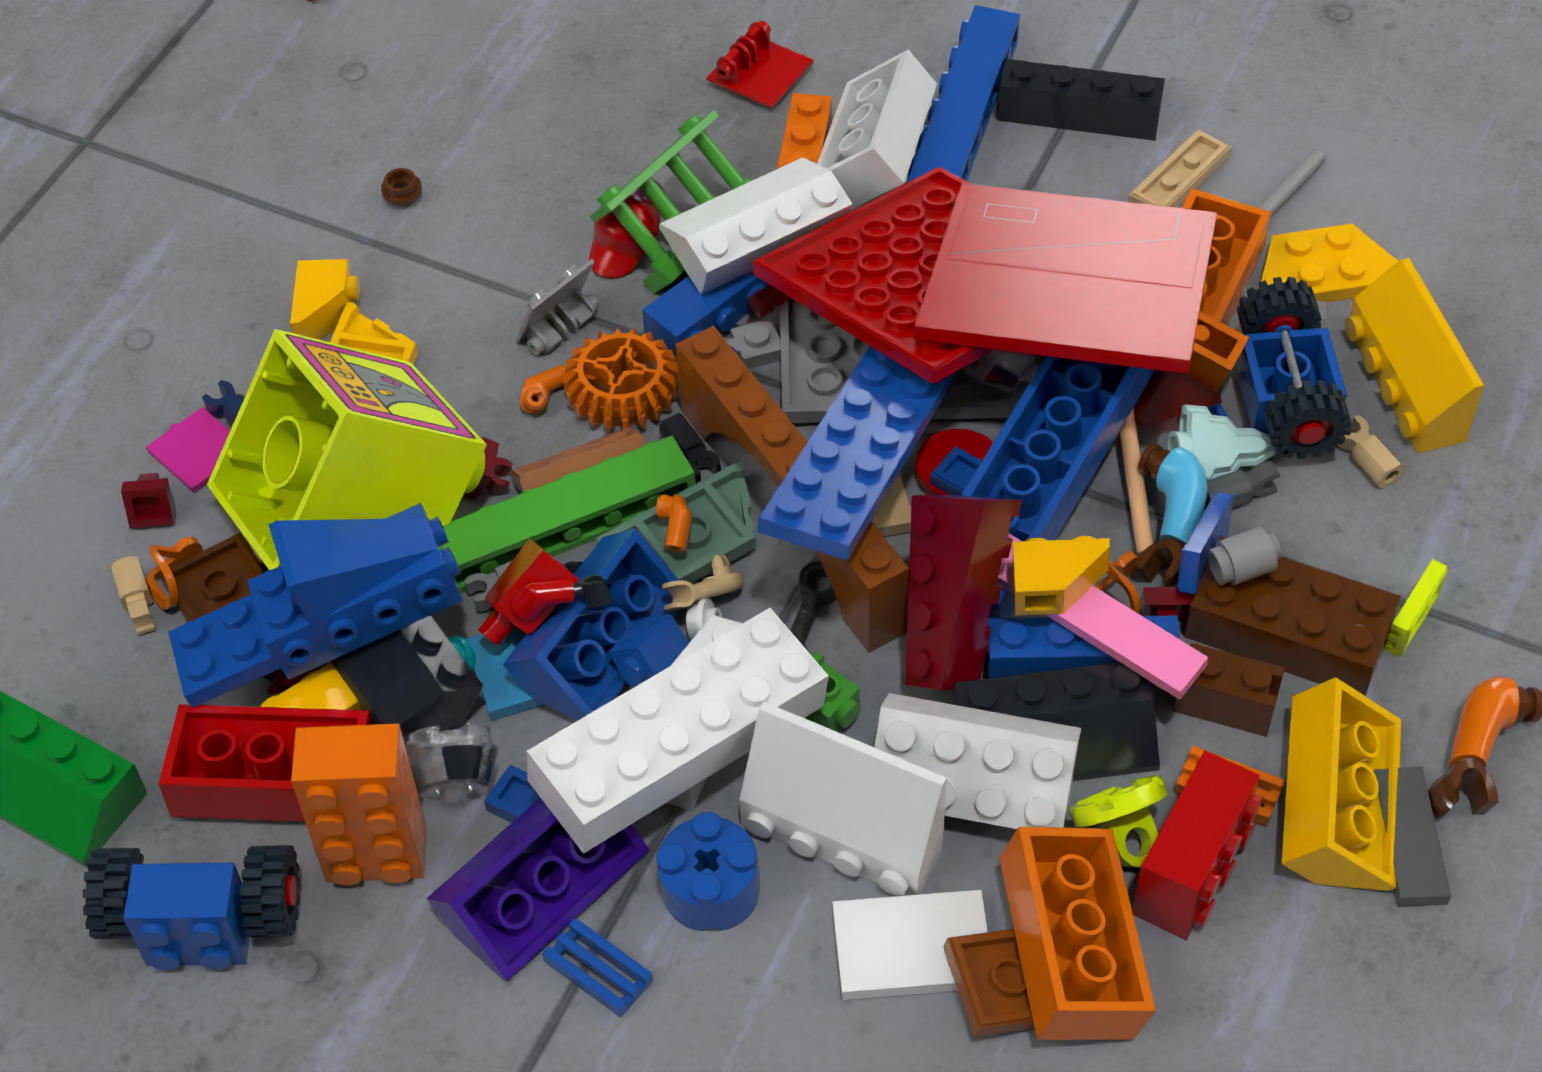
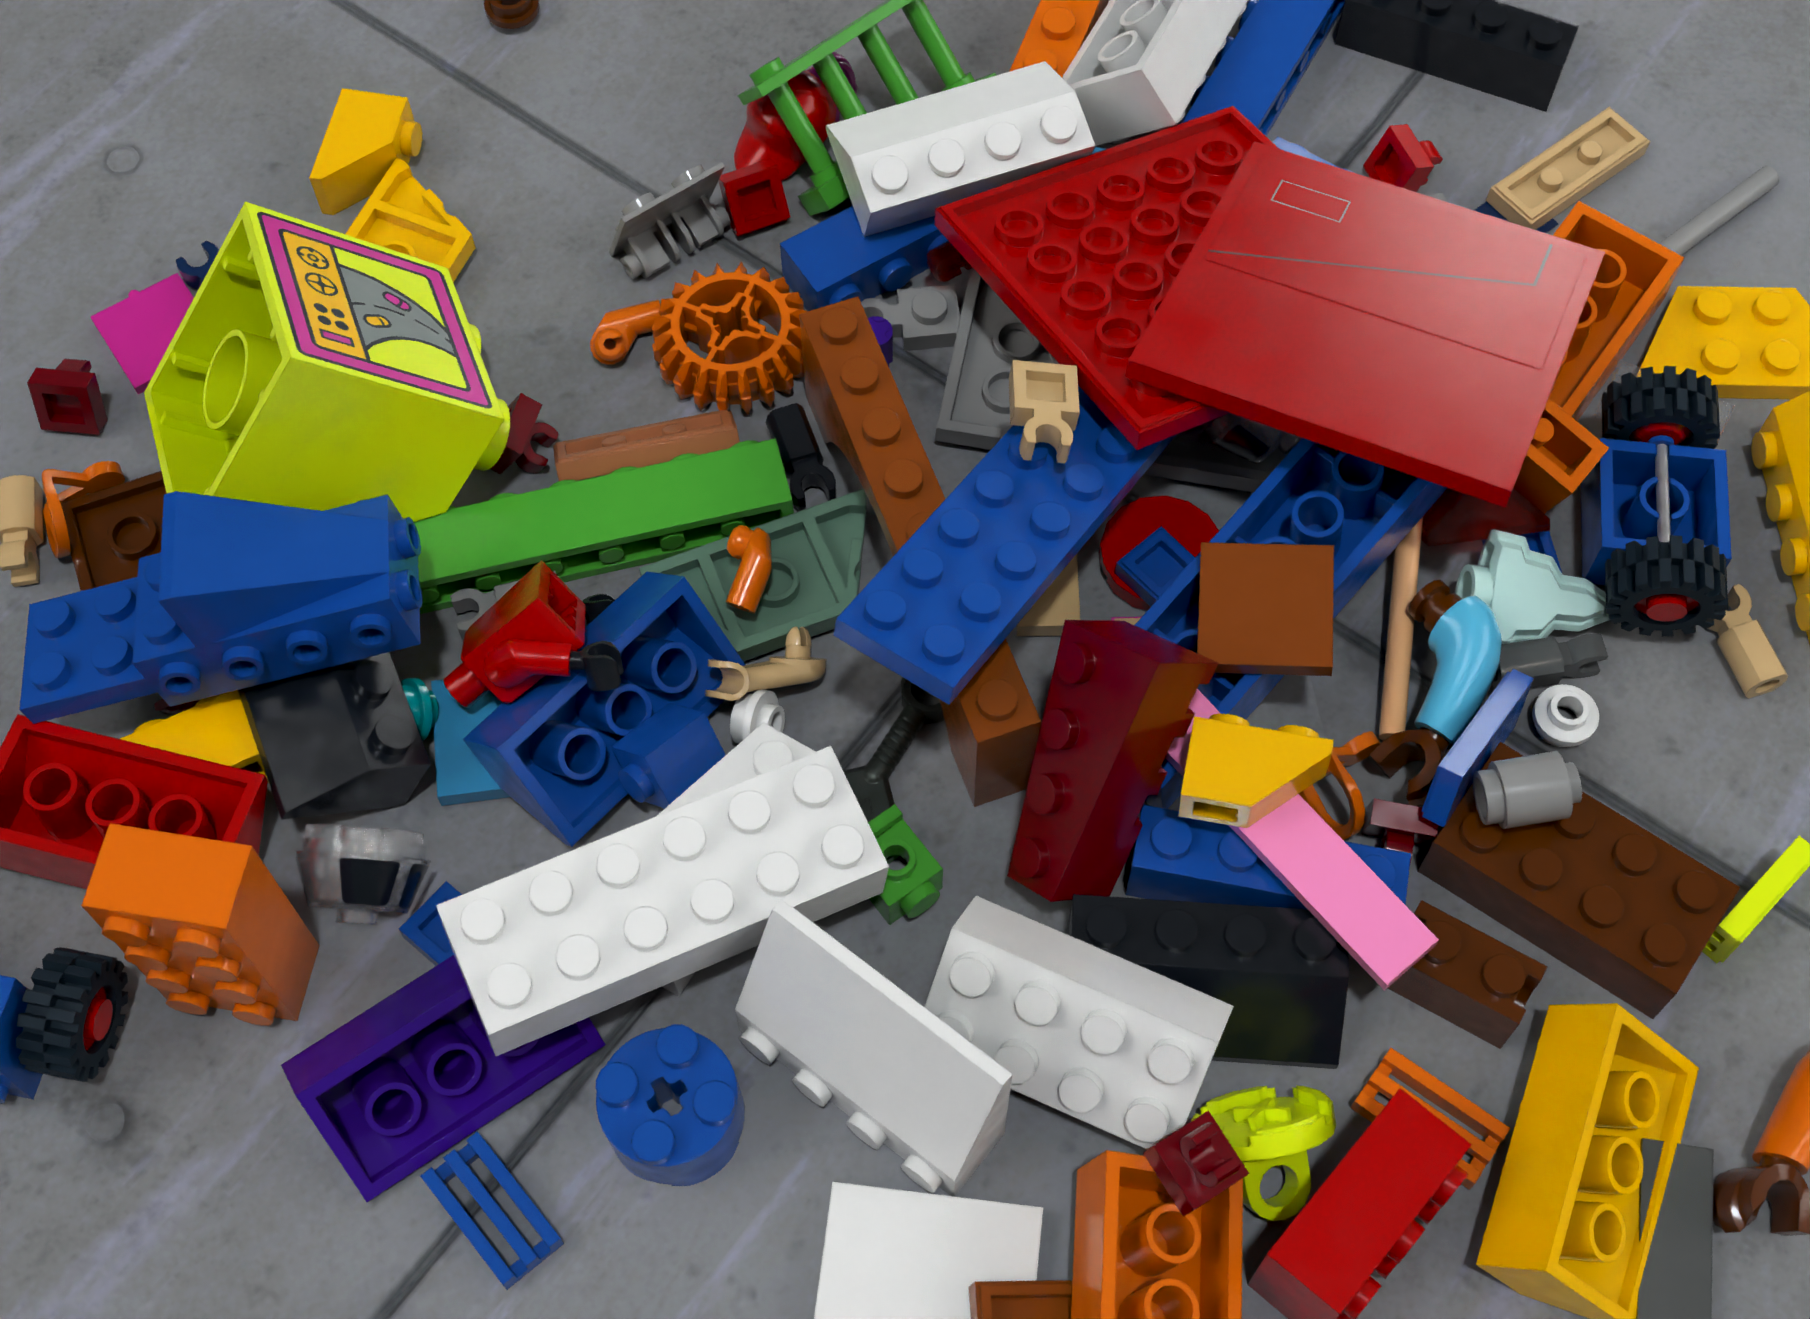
camera: 10 degrees right, 10 degrees up
(613, 285) = (754, 196): none -> red tile
(864, 365) = (1046, 404): none -> tan plate
(1044, 472) = (1267, 608): none -> dark orange tile
(1064, 181) = (1402, 159): none -> red tile
(1080, 824) = (1195, 1163): none -> dark red tile
(1265, 509) = (1558, 729): none -> white plate

